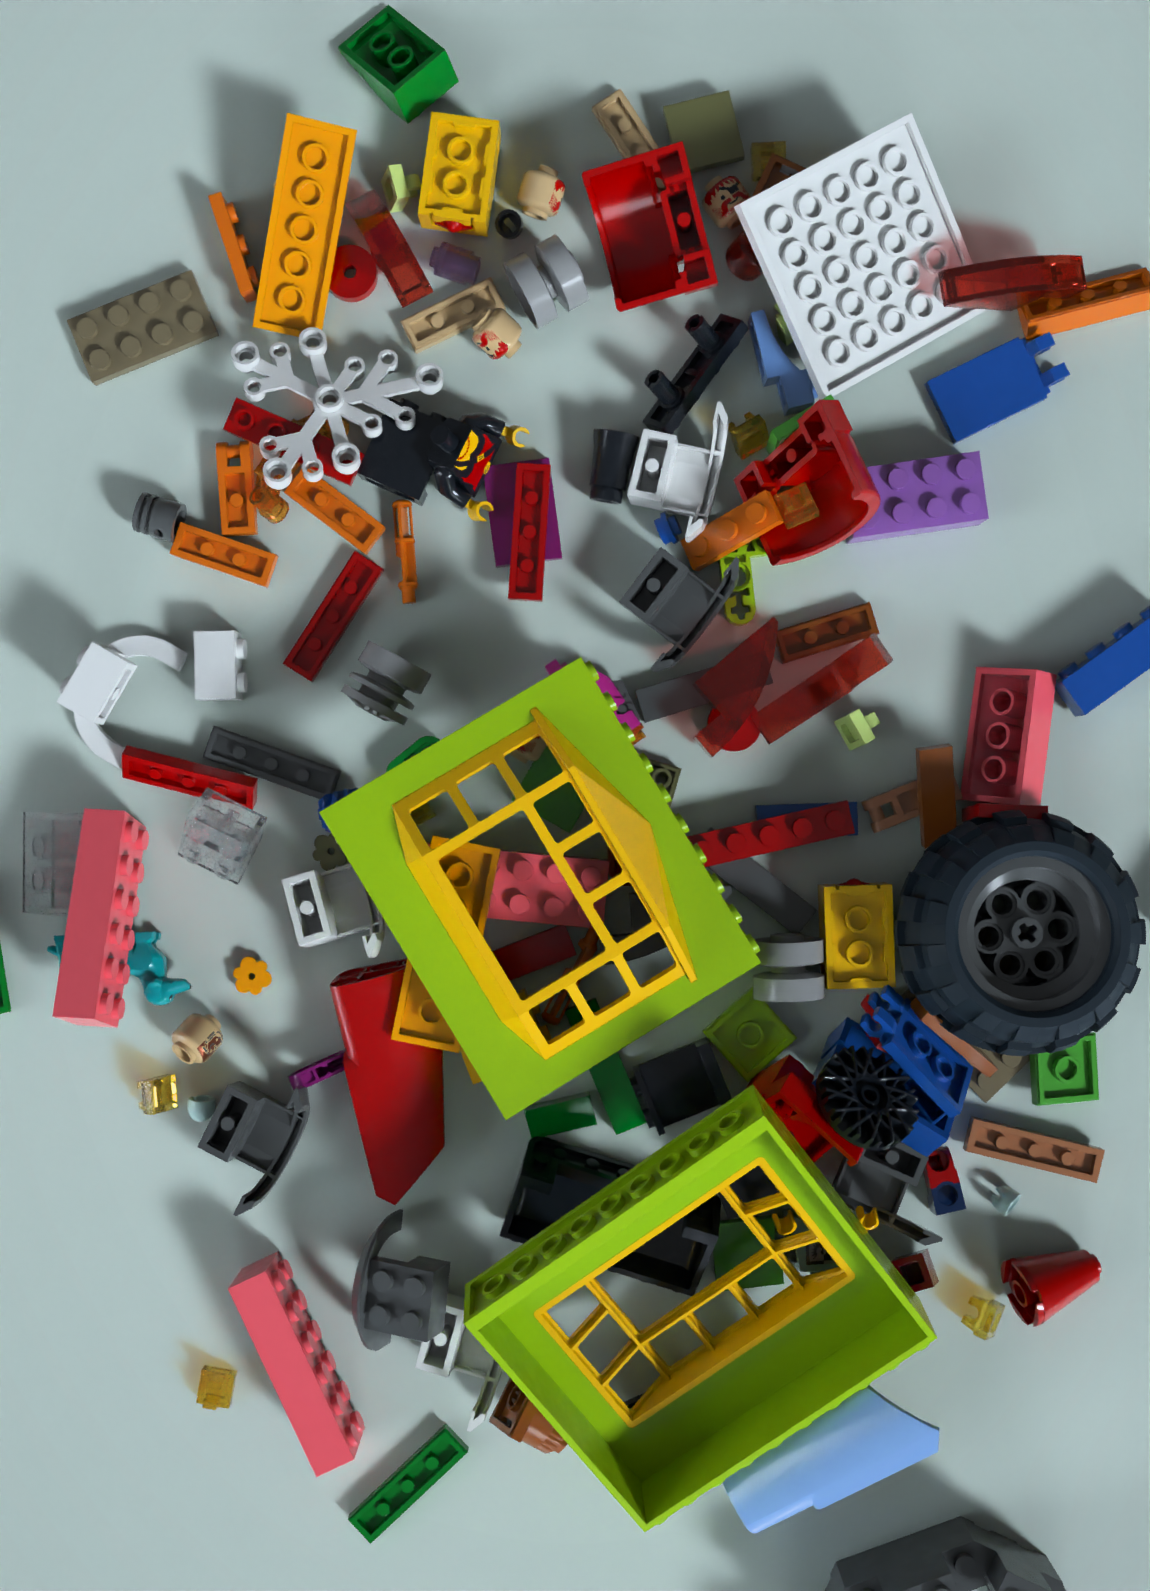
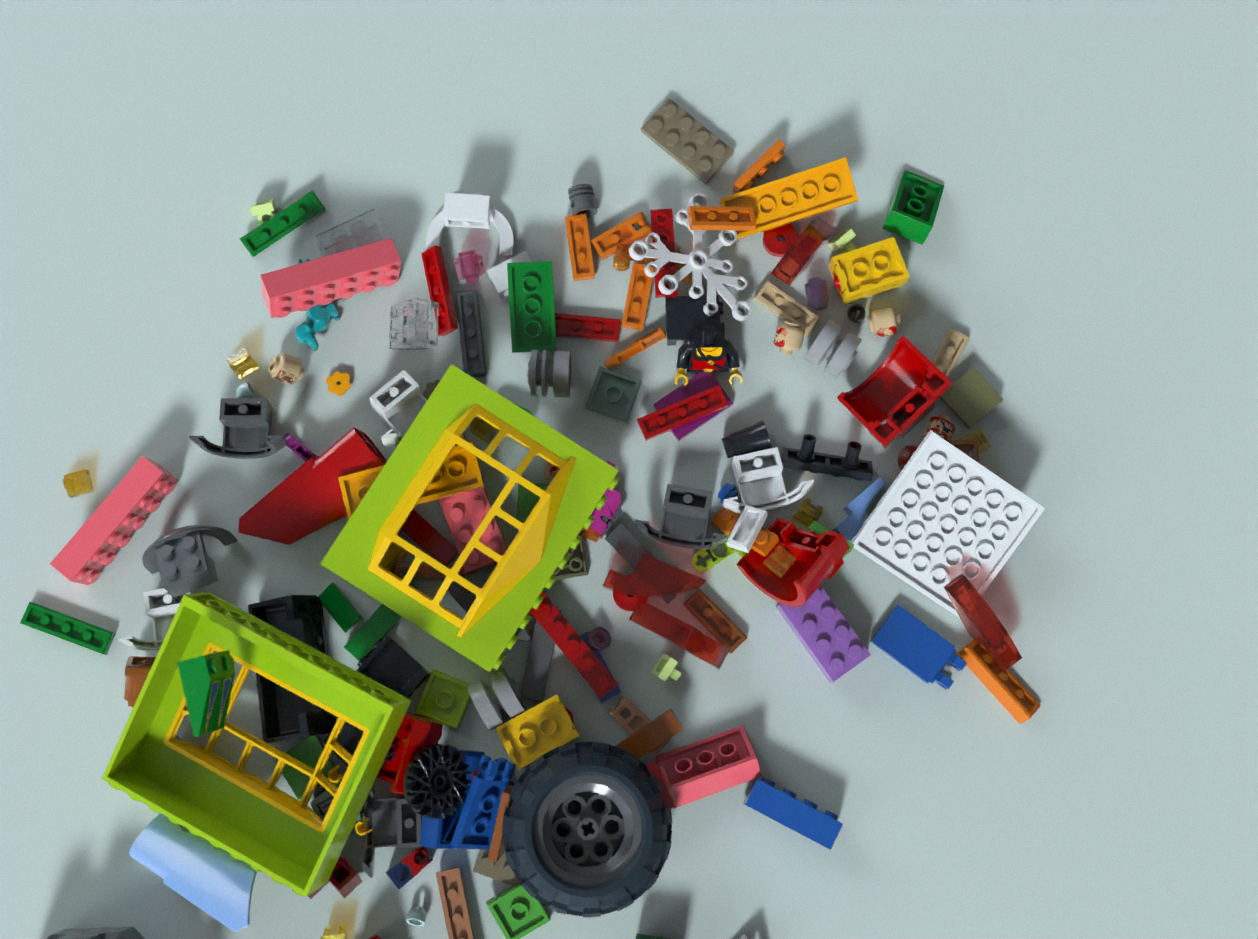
camera: 60 degrees right, 10 degrees down
(175, 719) = (469, 266): none -> clear pink head
(278, 662) = (531, 306): none -> green plate
(285, 335) = (721, 218): none -> orange plate
(454, 613) = (613, 394): none -> sand green tile
(611, 1351) = (207, 690): none -> green slope
(734, 526) = (747, 528): none -> white tile
(774, 796) = (599, 639): none -> tile

